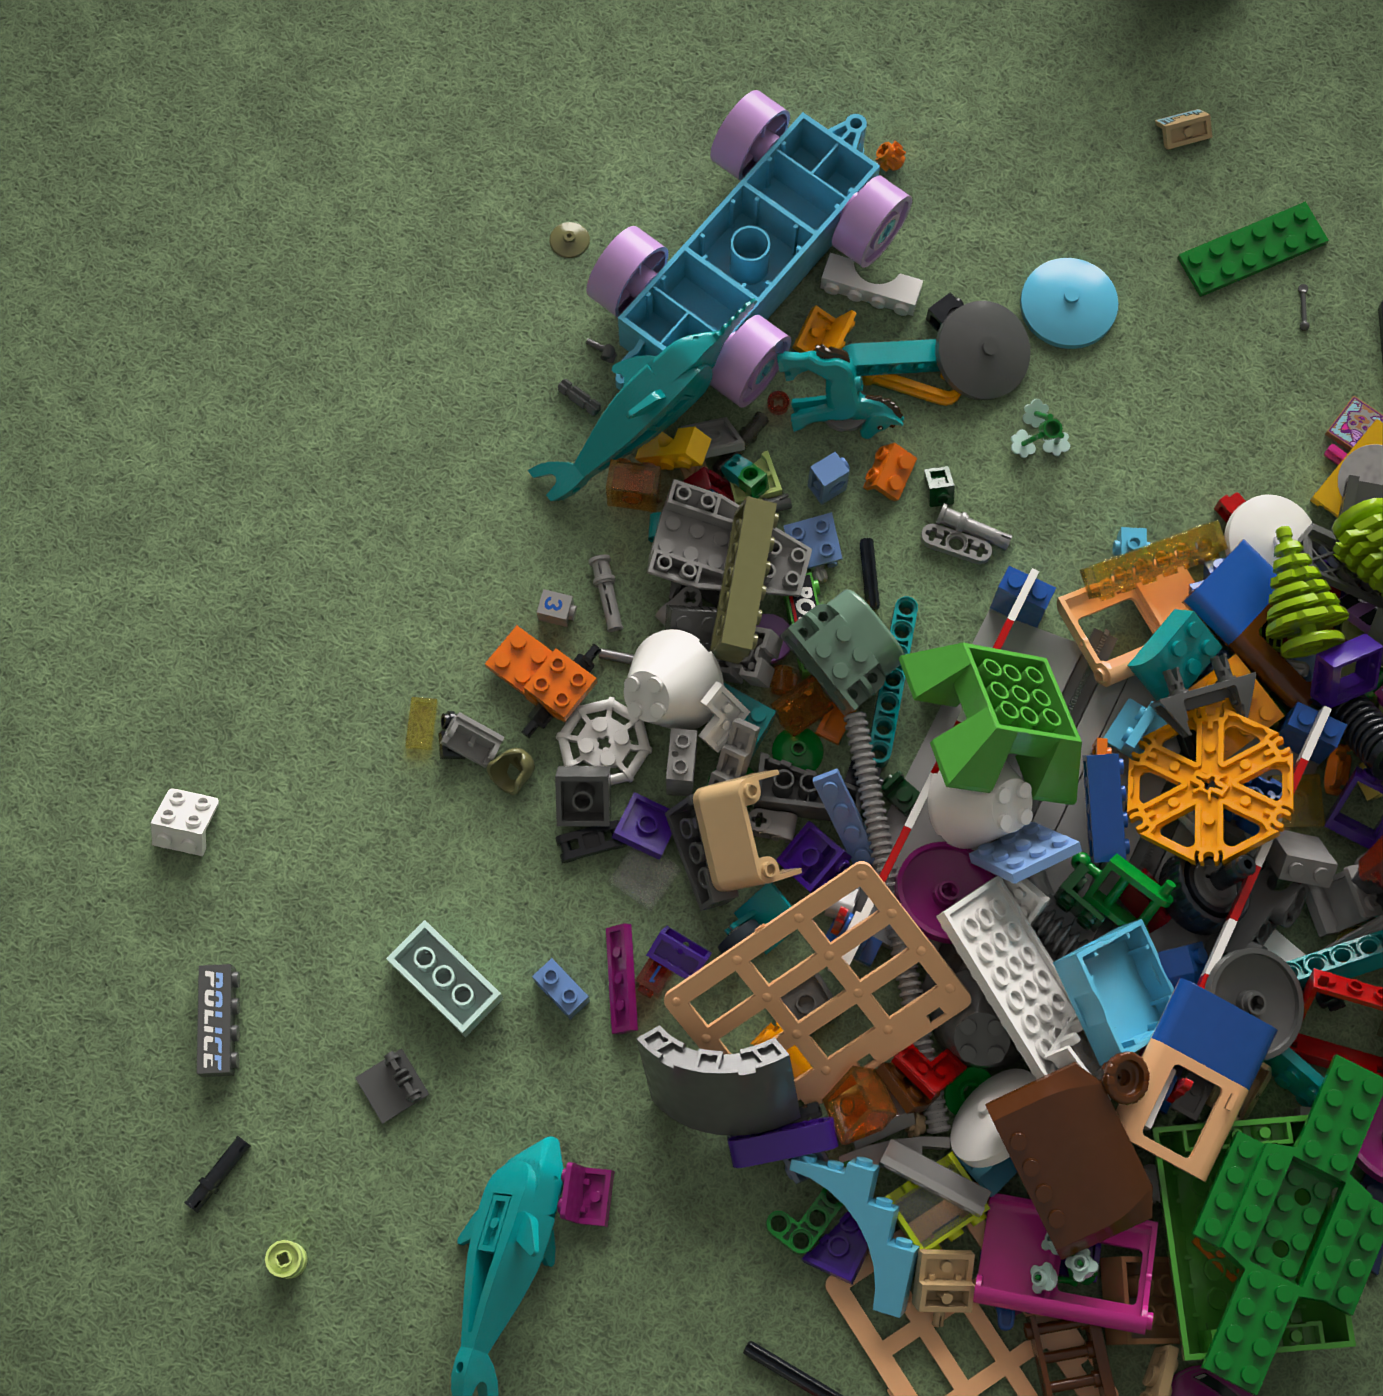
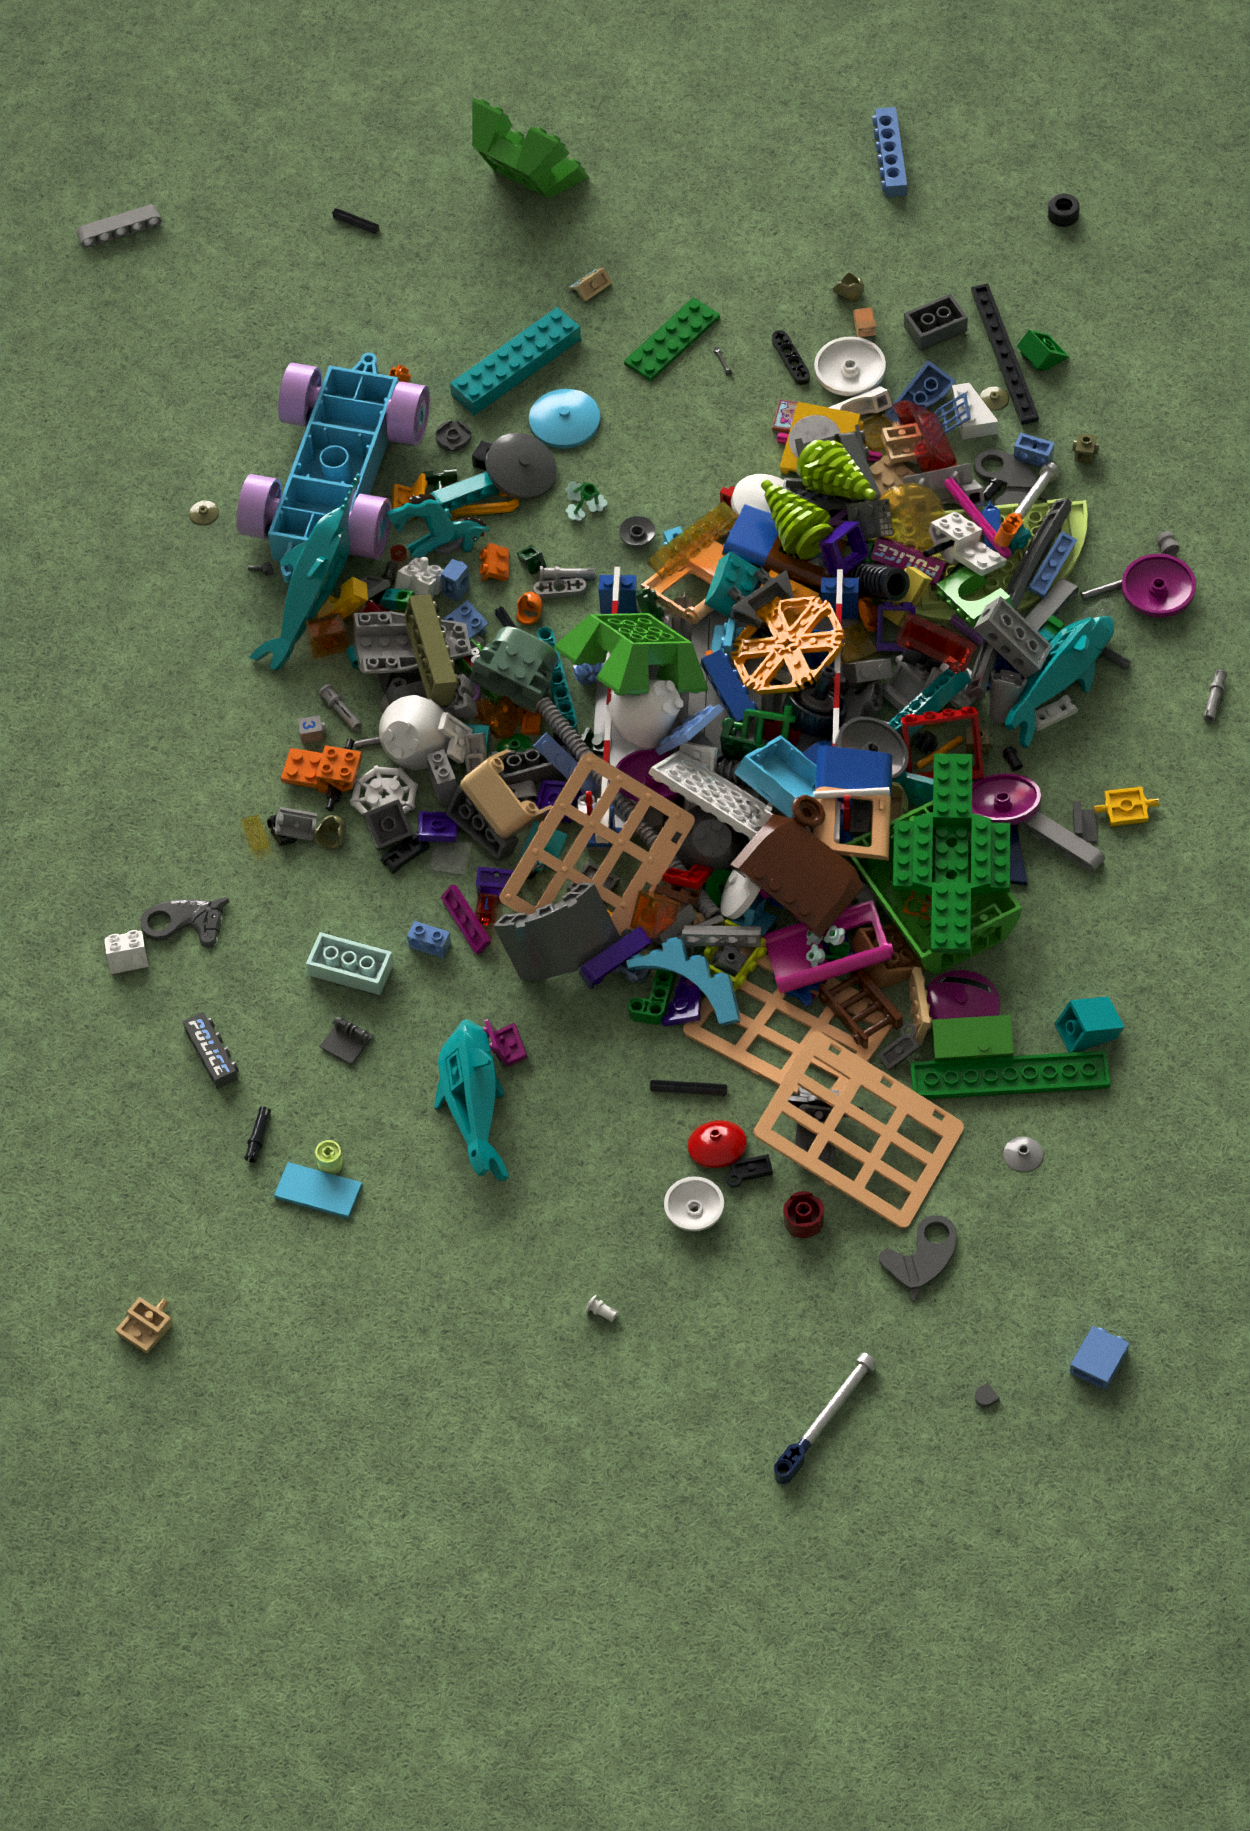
camera: 20 degrees left, 15 degrees down
(254, 1295) = (318, 1190): none -> medium azure tile
(300, 807) = (201, 914): none -> dark grey animal
(579, 397) = (260, 602): dark grey axle -> none
(784, 458) = (420, 577): none -> white brick
(875, 321) = (440, 479): none -> dark green bar
(898, 294) = (446, 457): white arch -> none
(912, 550) = (531, 602): none -> orange hair
(921, 255) = (453, 435): none -> dark grey tile
(928, 1220) = (729, 960): none -> dark grey brick
(943, 1283) = (756, 991): tan plate -> none
(1043, 197) = (515, 361): none -> teal brick
(1053, 635) = (647, 602): none -> dark green plate
(1090, 496) = (636, 525): none -> dark grey dish
(1197, 1071) = (852, 792): none -> white bar
(1338, 1015) = (942, 750): none -> light orange bar

